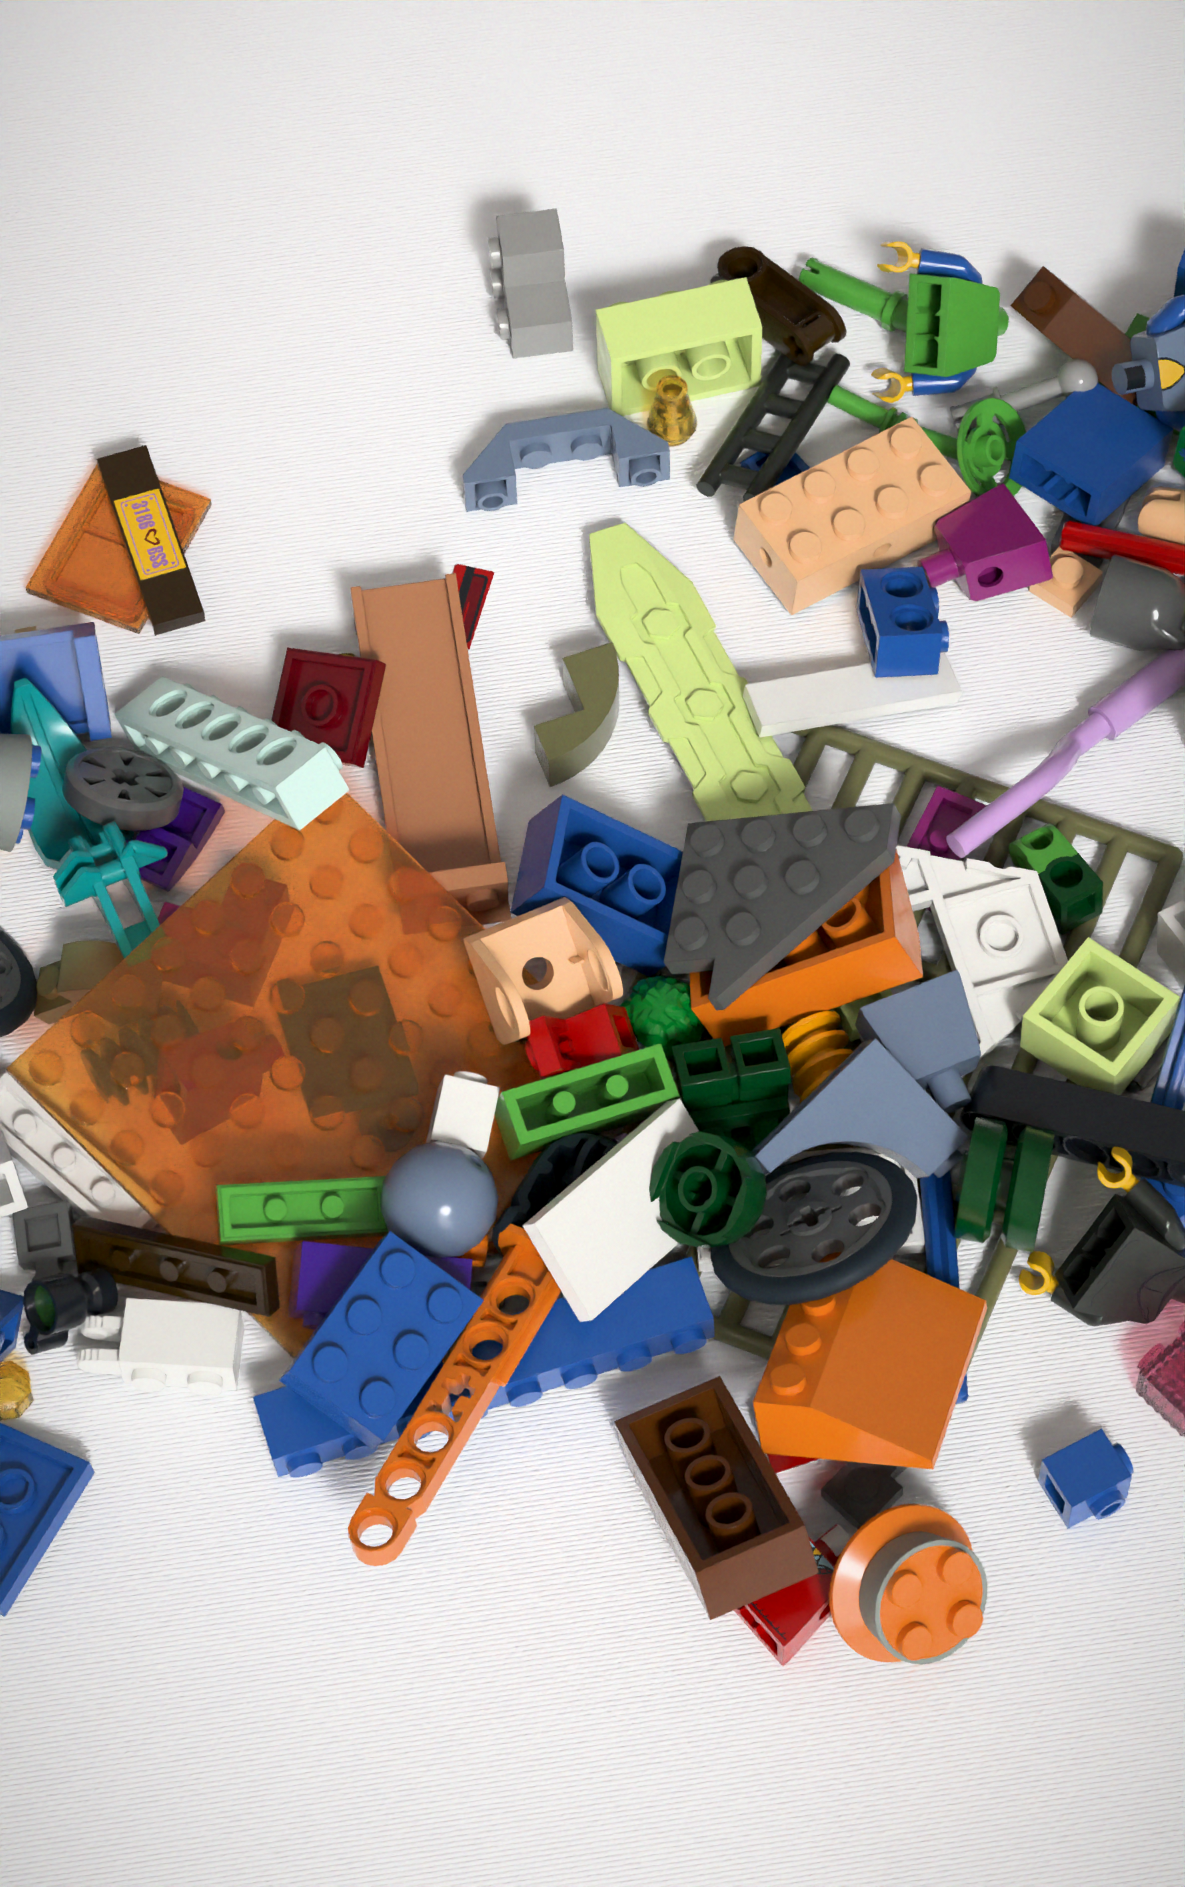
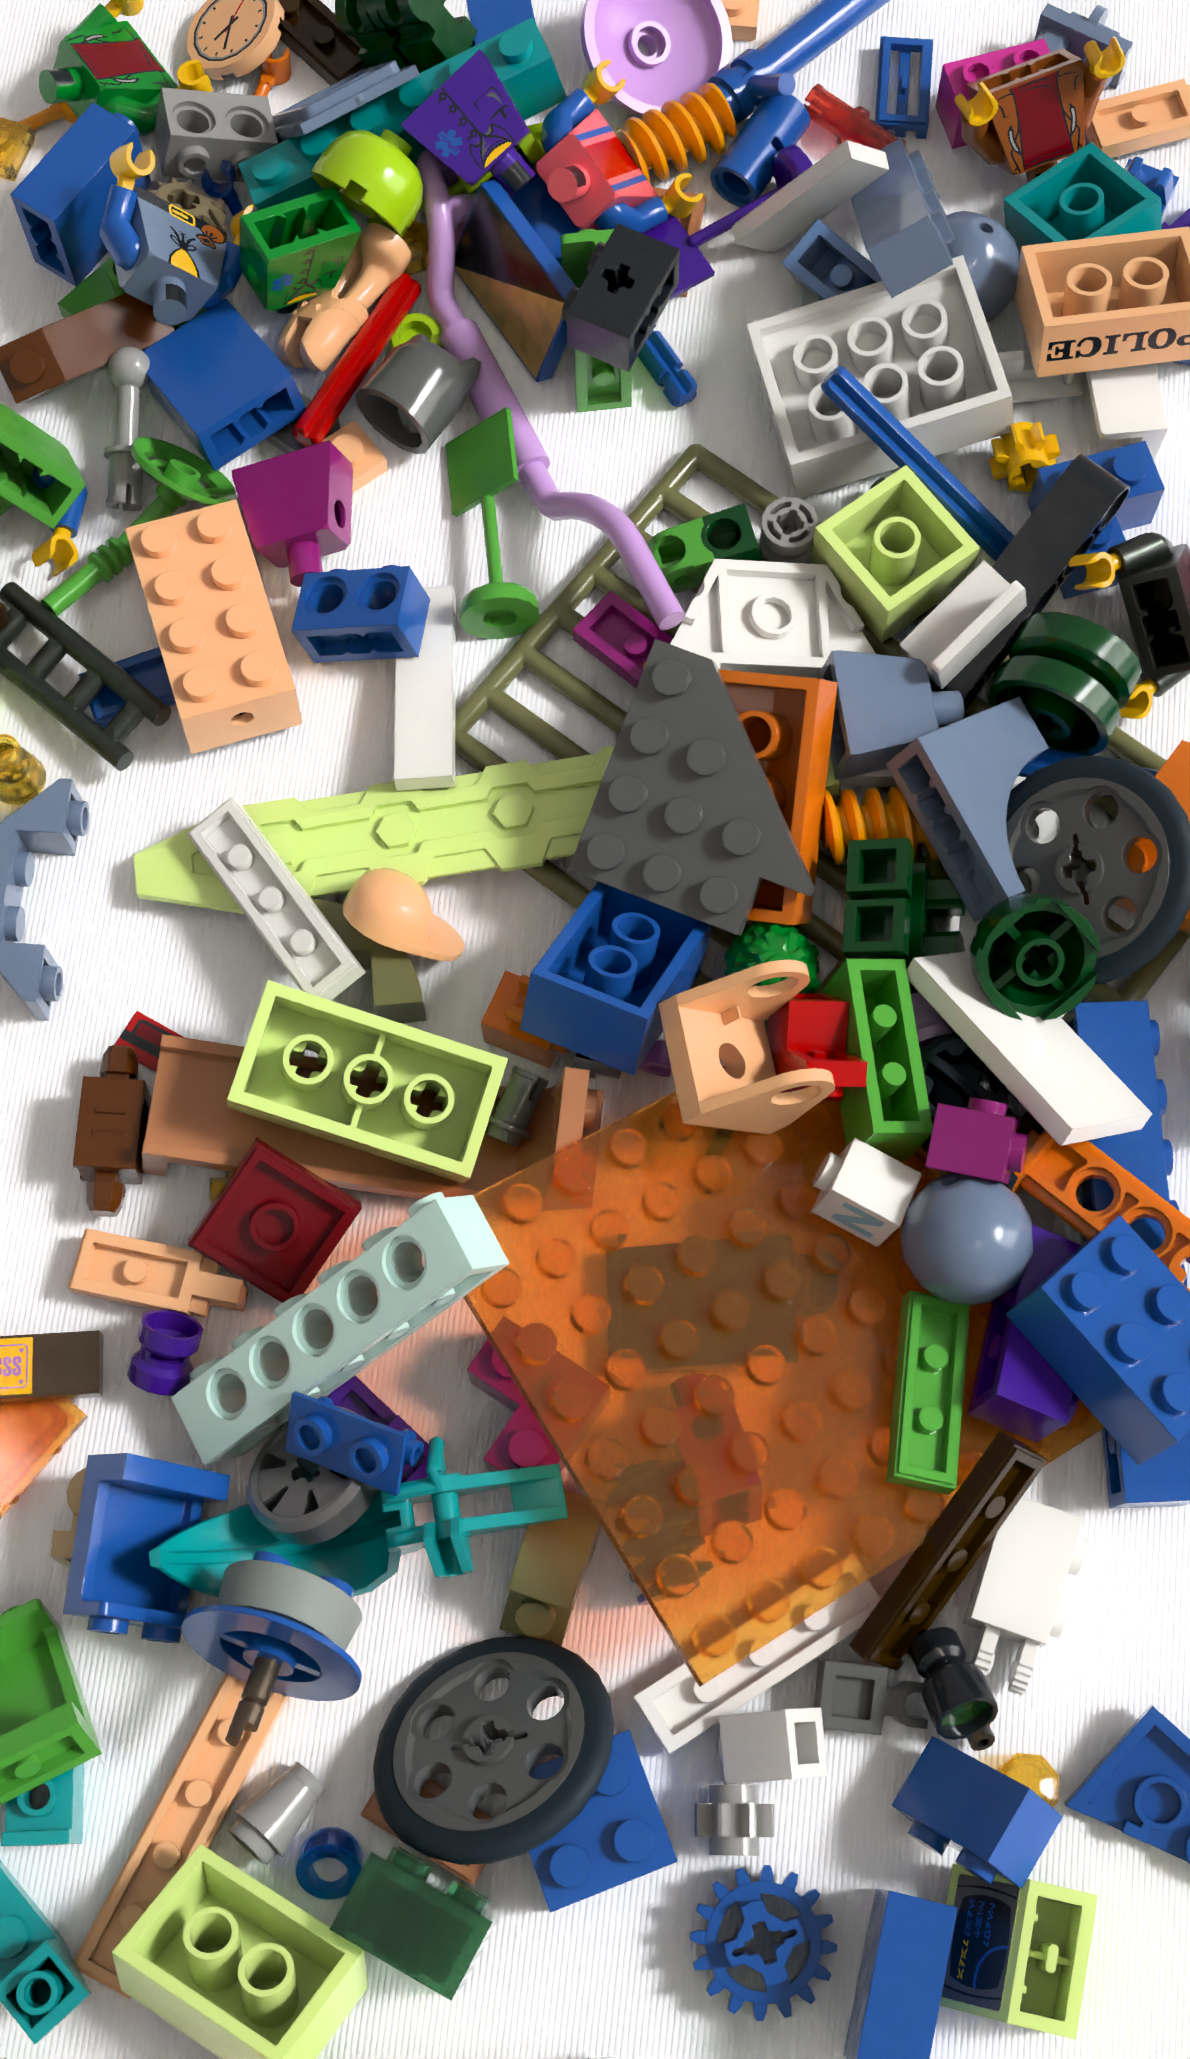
camera: 75 degrees left, 10 degrees up
(146, 788) = (350, 1443): none -> blue hinge
(201, 663) = (165, 1351): none -> dark purple wheel
(262, 640) = (152, 1275): none -> light nougat hinge
(373, 566) = (111, 1130): none -> reddish brown piece
(423, 739) = (347, 1044): none -> yellowish green brick
(466, 854) = (516, 1107): none -> dark grey pin
(517, 1174) = (977, 1141): none -> magenta brick
(602, 627) = (275, 902): none -> white tile
(617, 721) = (399, 915): none -> light nougat cap
(1028, 1080) = (964, 623): none -> white panel
(1075, 685) = (478, 468): none -> bright green piece
(1091, 920) = (788, 531): none -> light grey wheel

